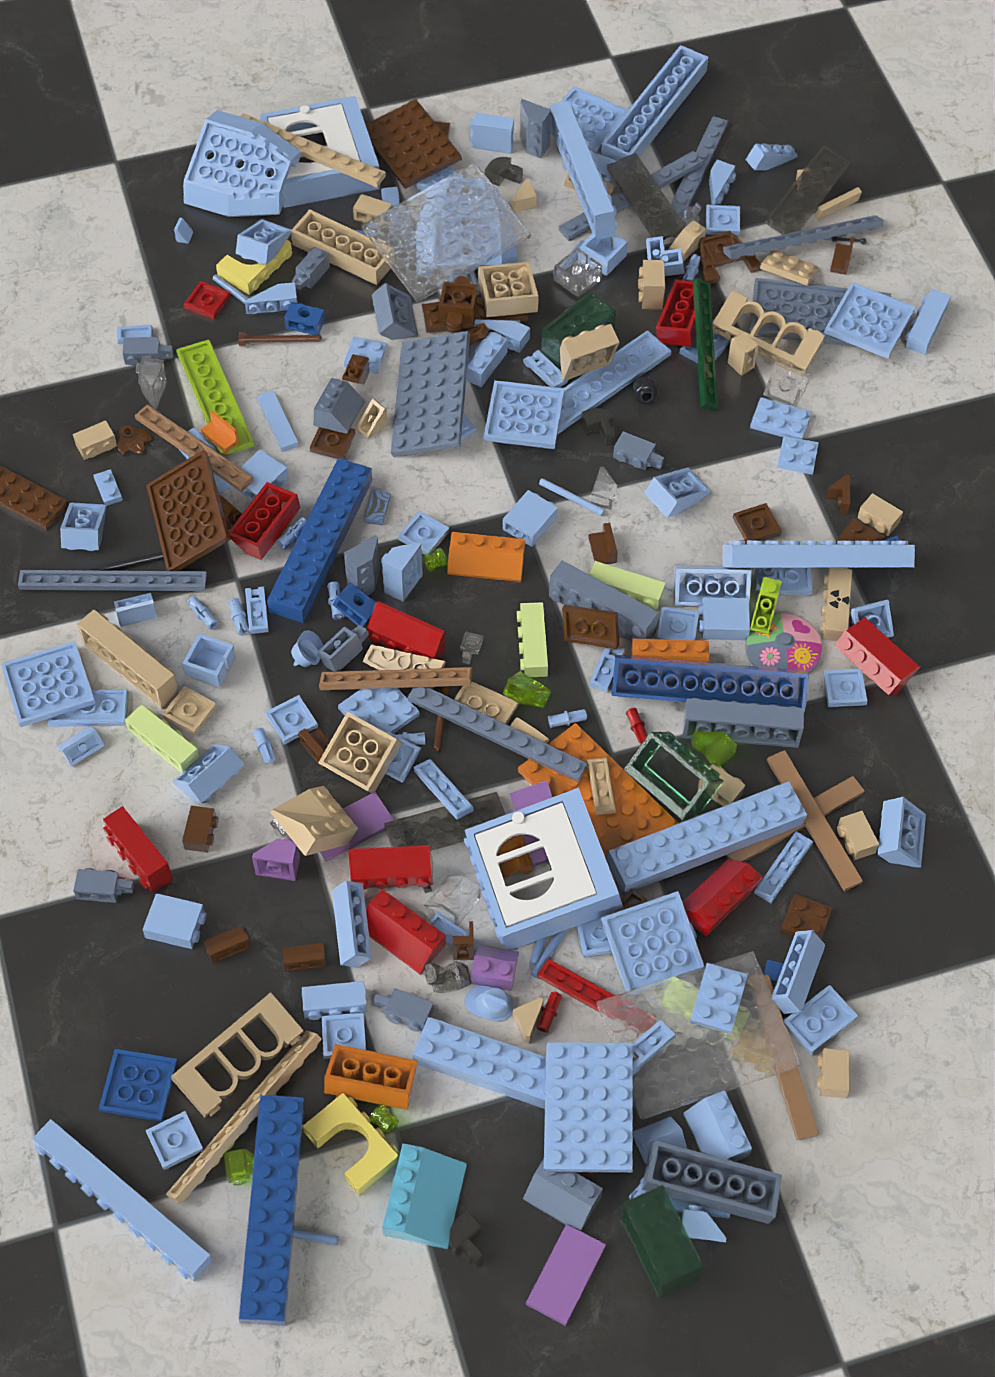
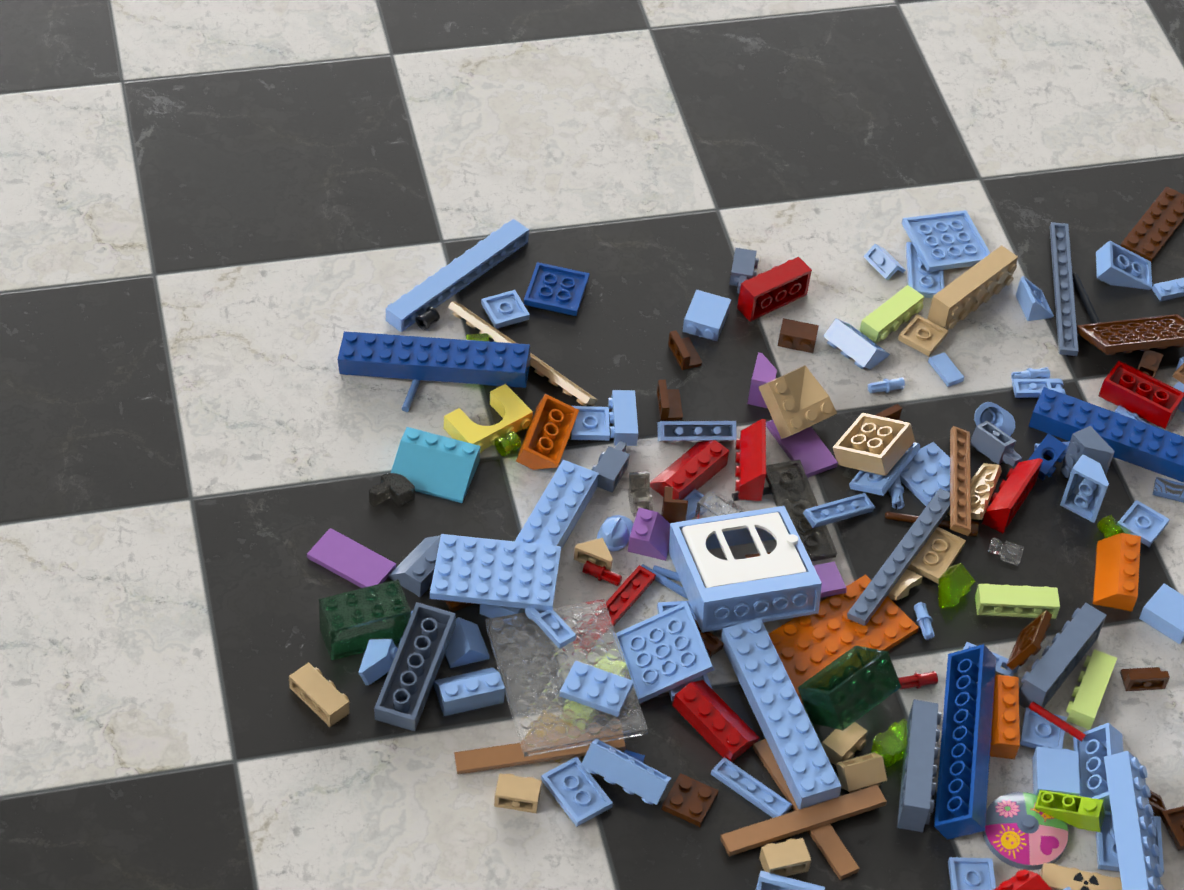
camera: 90 degrees right, 10 degrees down
(195, 1228) = (427, 318): none -> black bush
(199, 1091) = (595, 381): tan fence -> none
(202, 612) = (1032, 349): light blue pin -> none
(209, 660) = (975, 346): light blue piece -> none
(234, 691) = (946, 369): none -> light blue tile
(291, 718) = (916, 406): light blue plate -> none
(601, 786) = (841, 635): tan tile -> none
(670, 613) = (1057, 721): none -> red bar
(752, 1282) = (319, 694): none -> tan brick
(755, 770) = (861, 772): none -> tan brick

